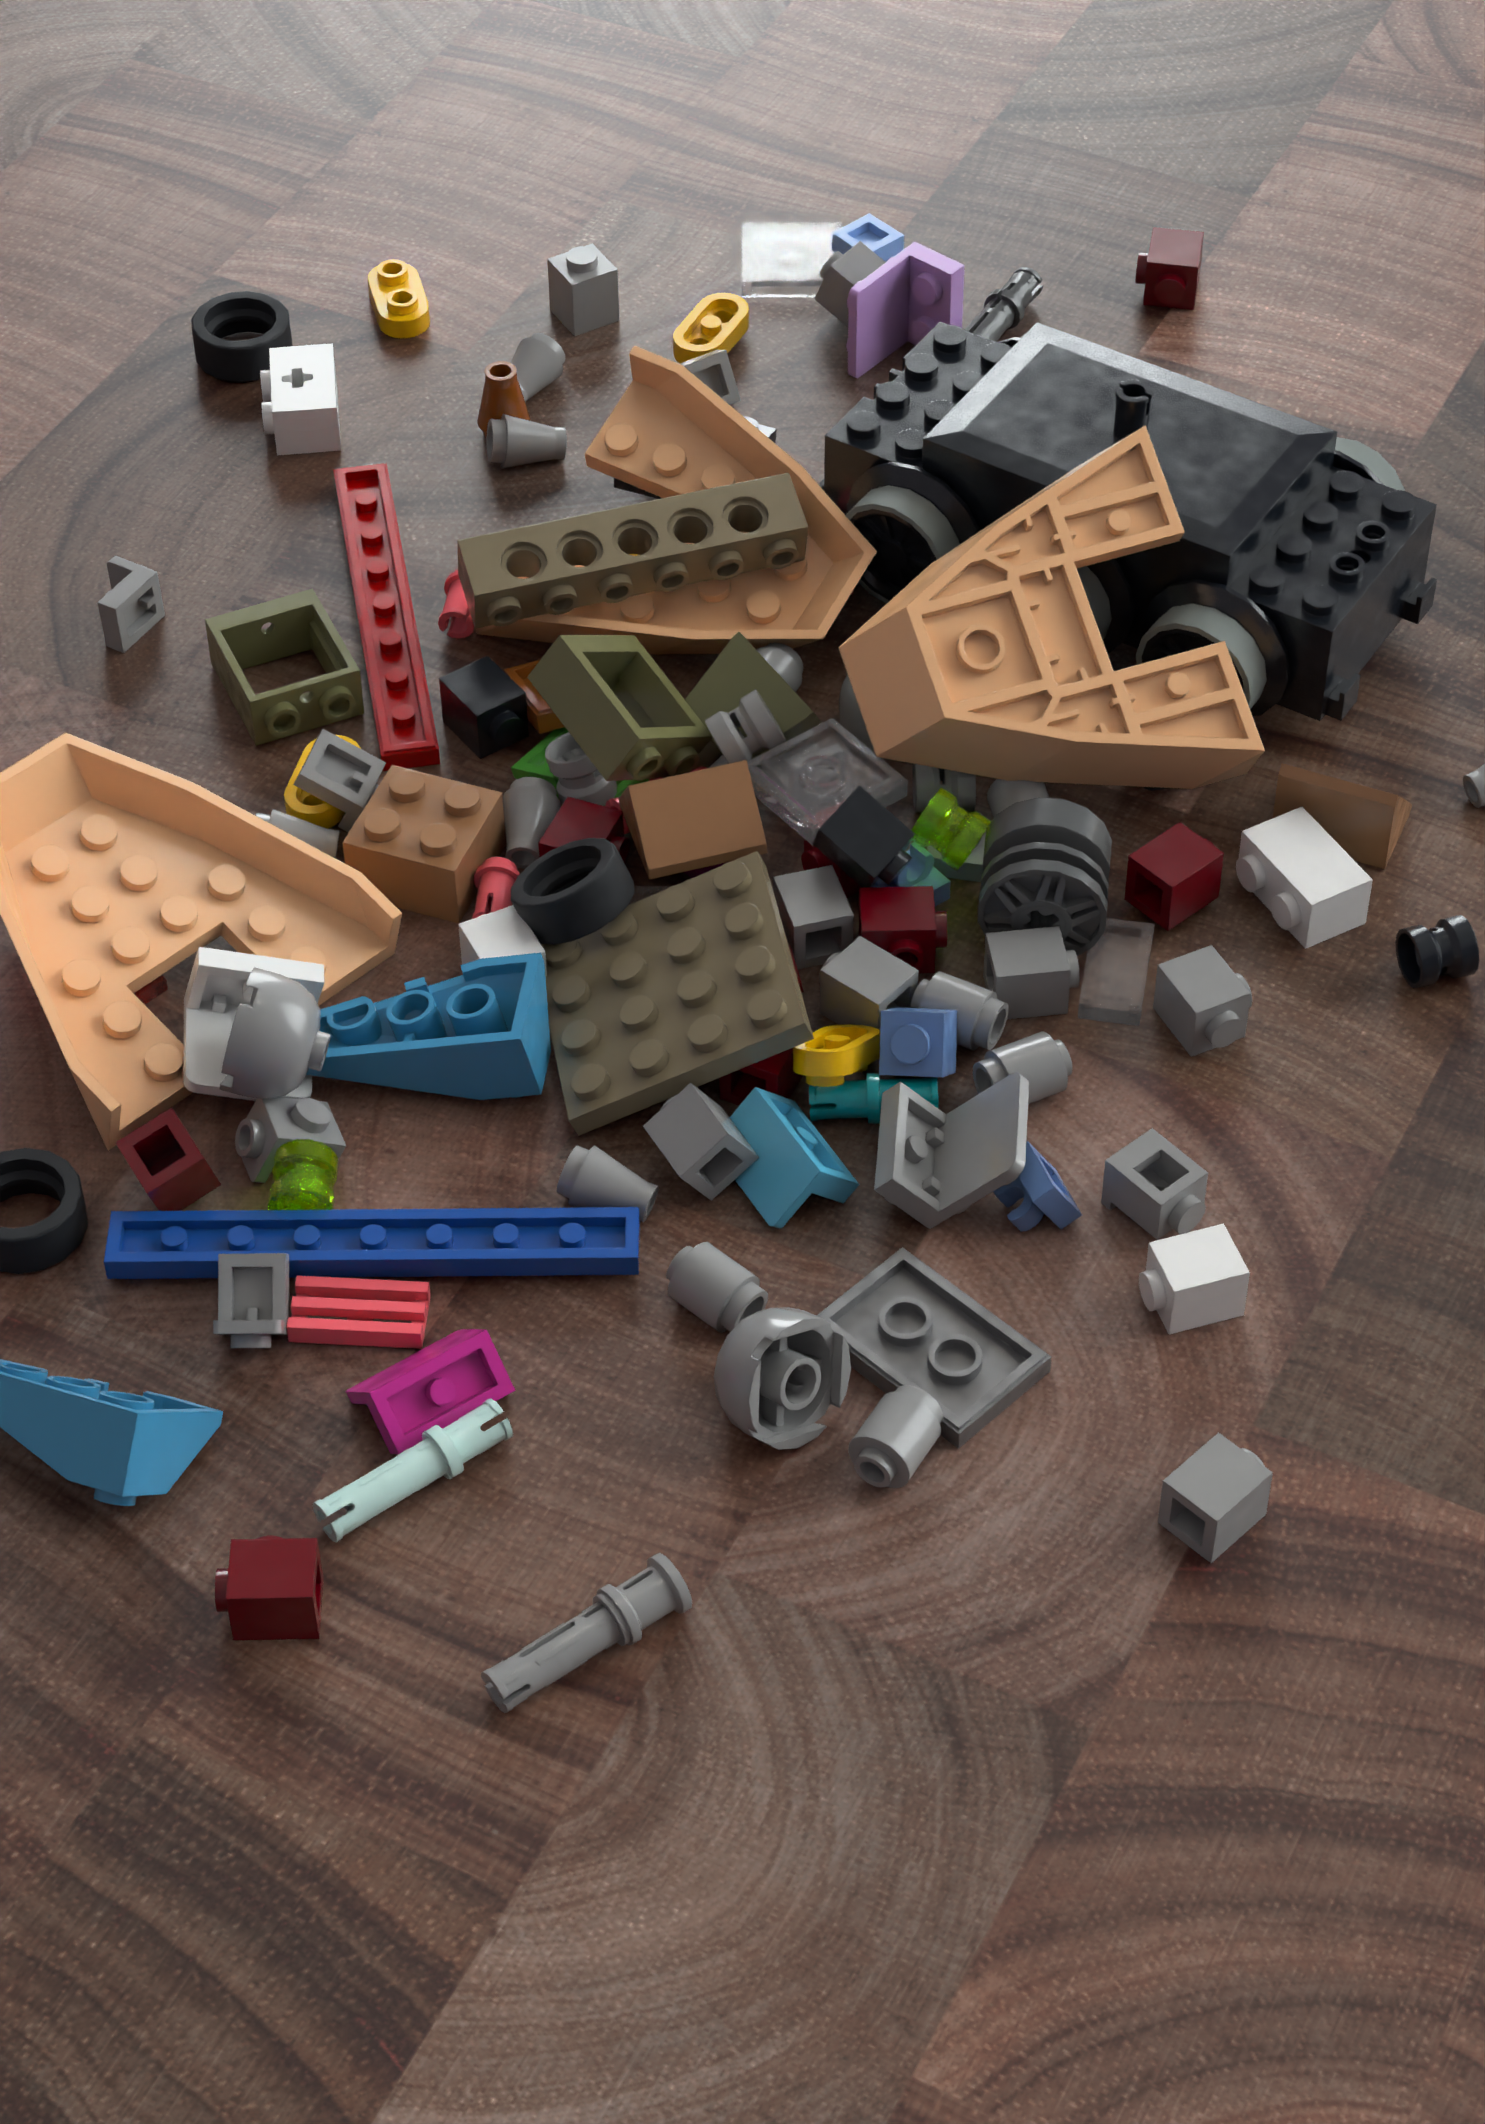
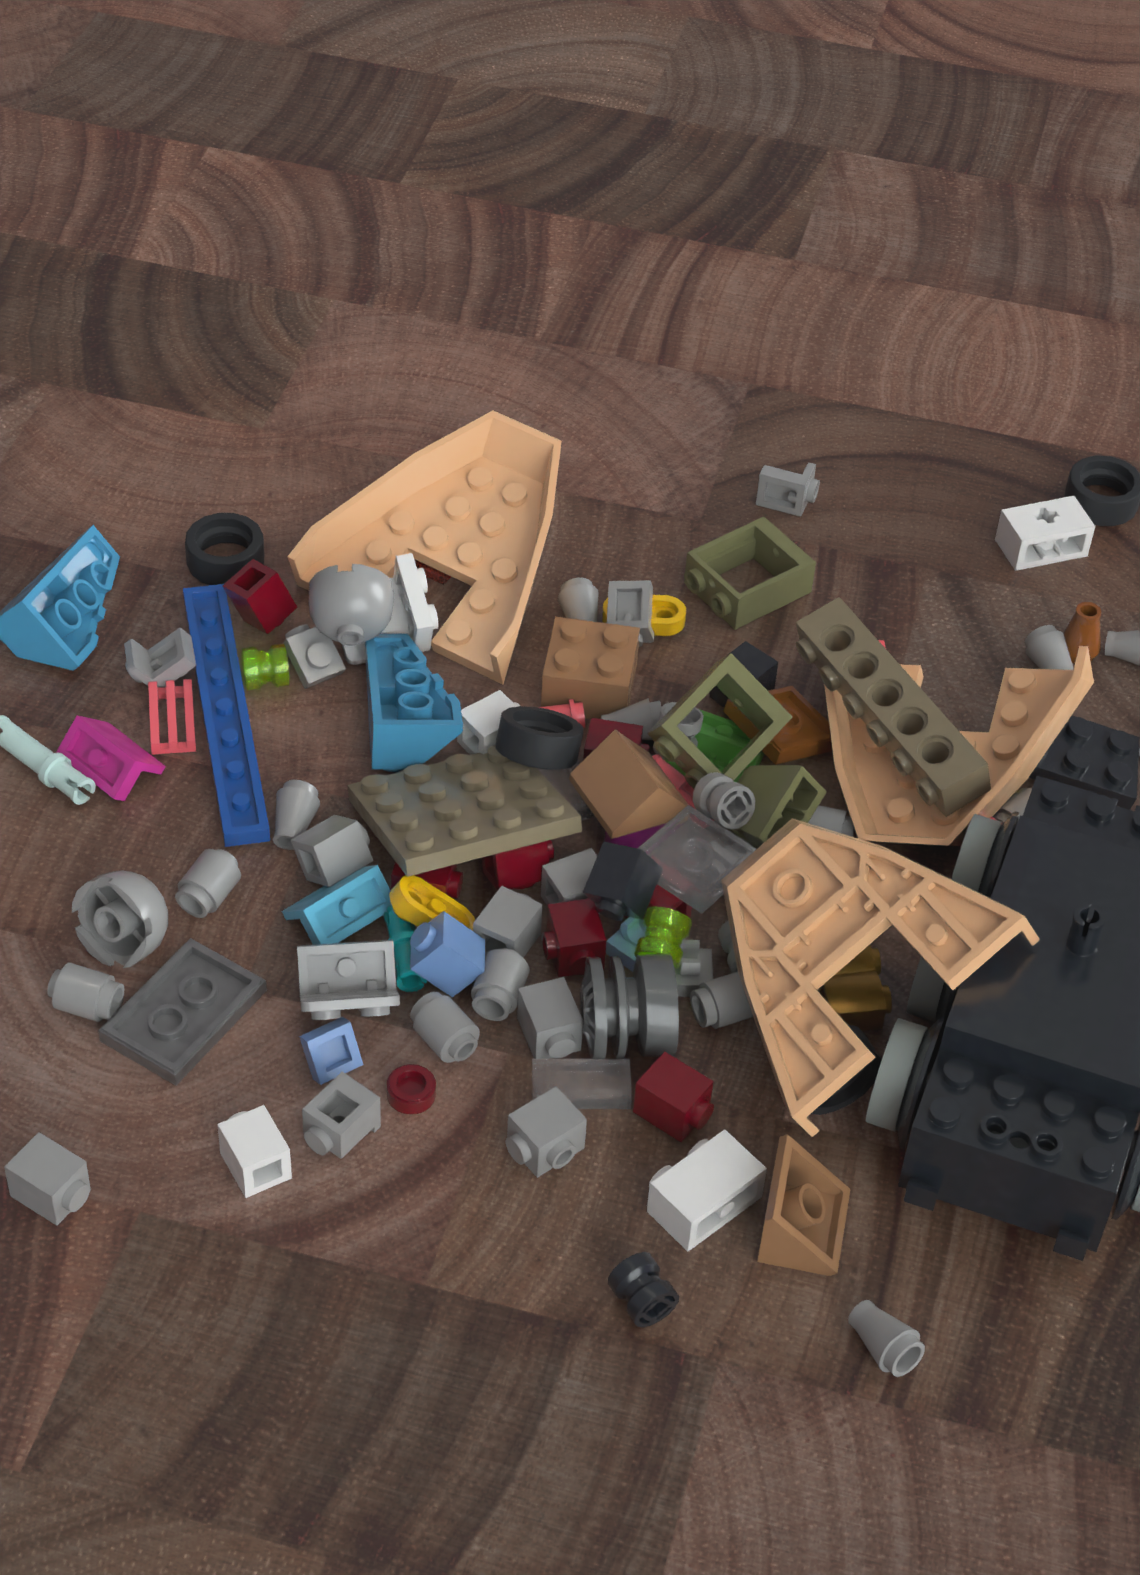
camera: 75 degrees right, 0 degrees up
(386, 618) = (875, 609): red tile -> none
(1100, 1127) = (411, 1089): none -> dark red tile

